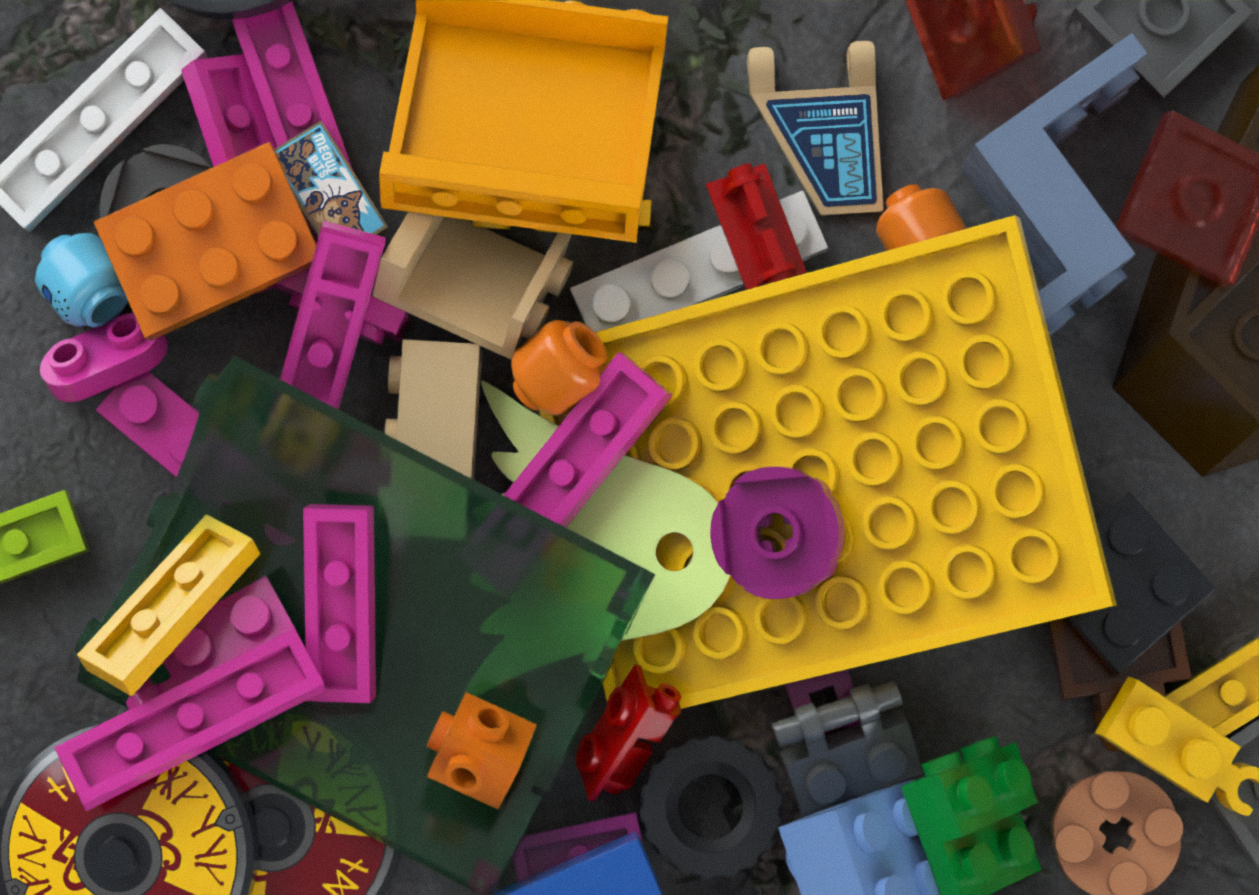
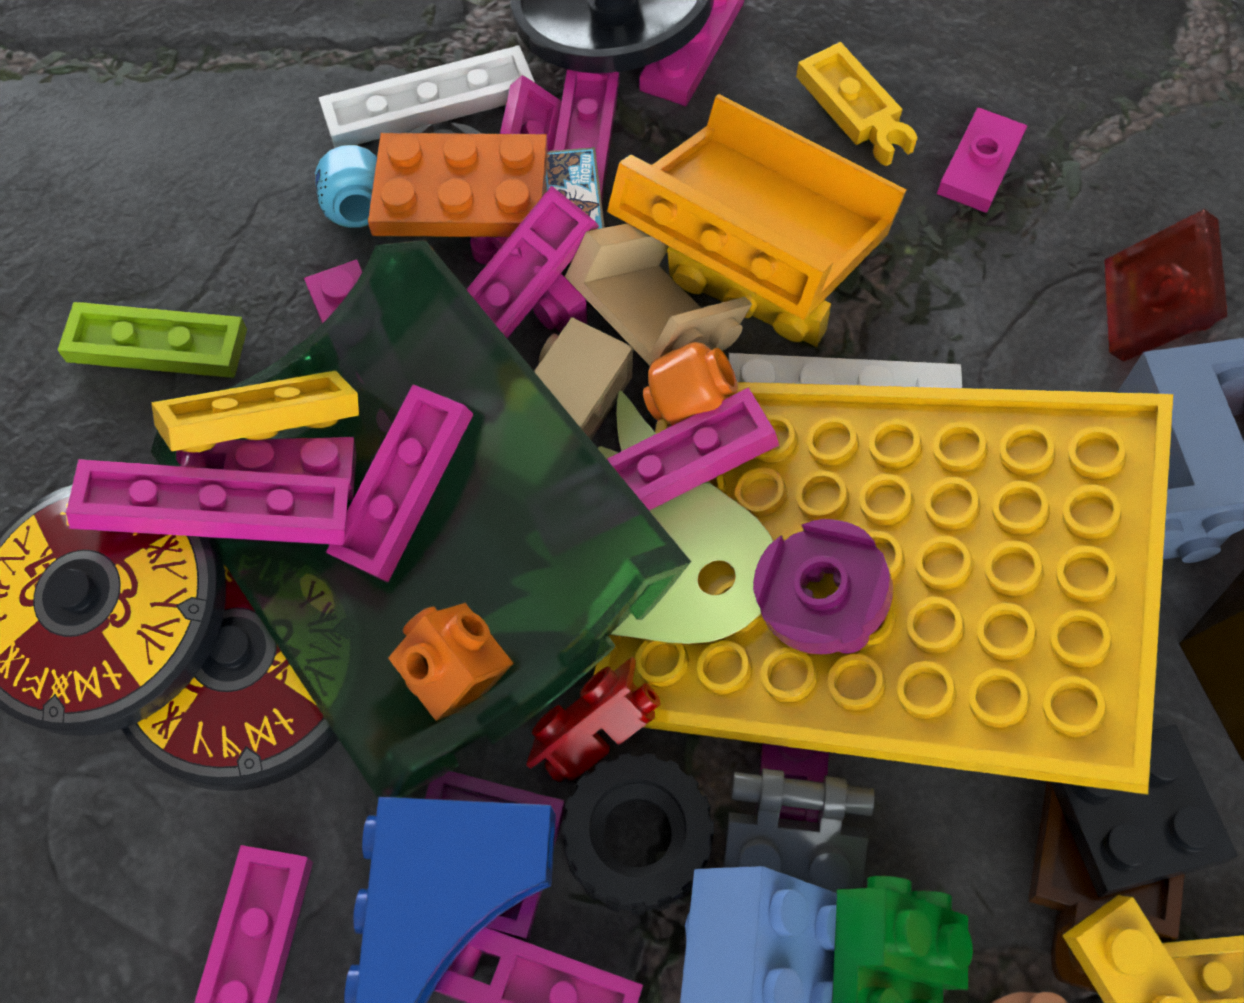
camera: 25 degrees right, 20 degrees down
(100, 359) = (311, 242): dark pink plate -> none
(755, 226) = (910, 348): red hinge -> none
(826, 132) = (994, 337): flag -> none

